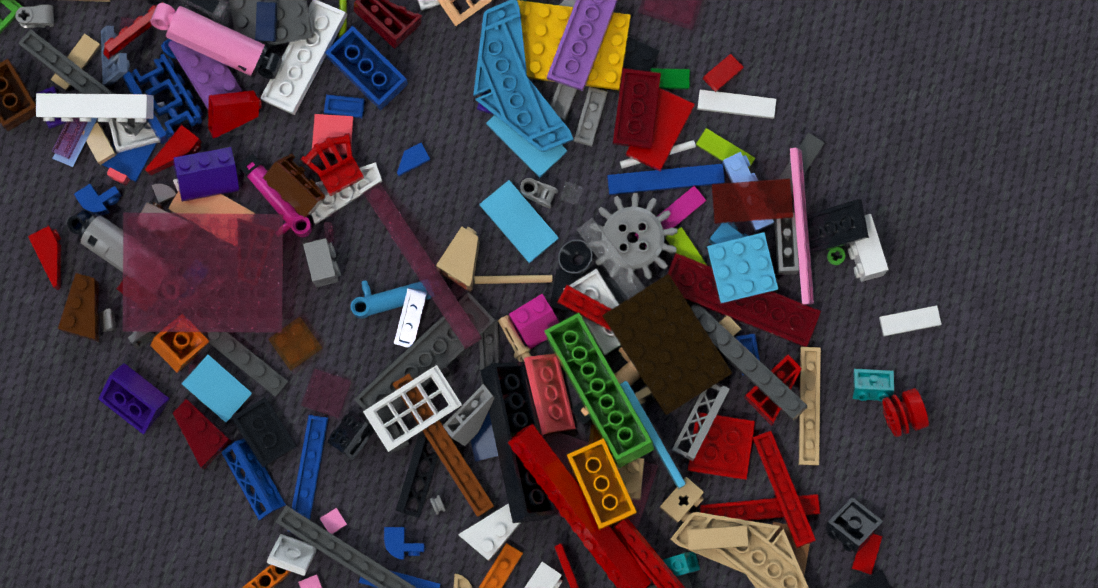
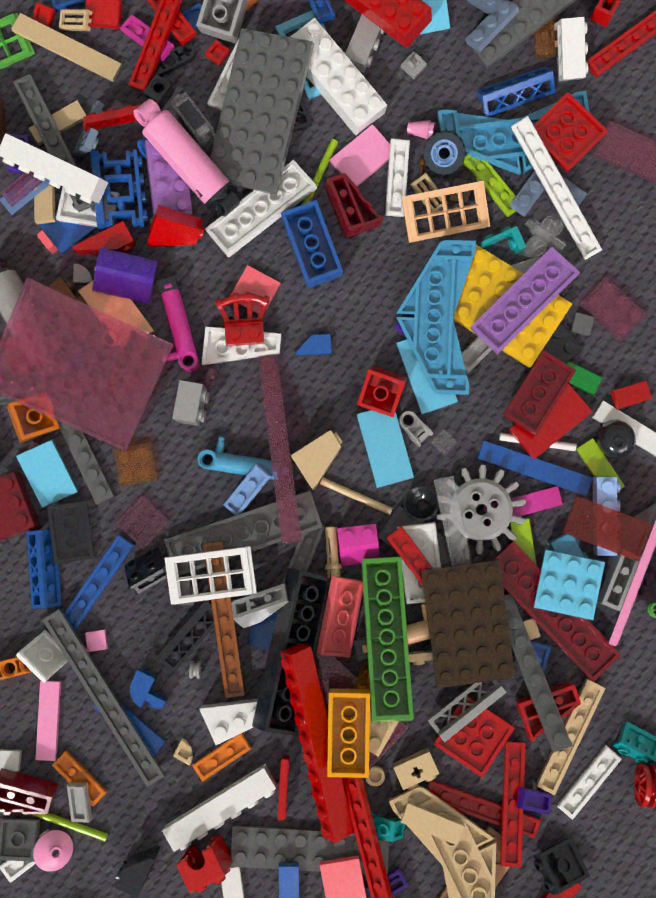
camera: 25 degrees right, 5 degrees up
(38, 16) = (43, 65): light grey piece -> none
(97, 203) = (15, 254): blue brick -> none
(266, 21) = (240, 160): dark blue tile -> none
(294, 186) = (197, 322): reddish brown wedge -> none
(344, 106) = (276, 270): blue tile -> none
(493, 172) = (382, 391): none -> red slope
(590, 116) = (493, 380): light grey tile -> none
(648, 525) = (376, 776): none -> tan tile
(649, 29) = (582, 324): none -> dark grey tile
(657, 443) = (416, 700): medium azure tile -> none
(726, 118) = (616, 439): none -> black cylinder
(802, 477) = (534, 800): none -> dark purple tile
(846, 440) = (589, 782): none -> white tile

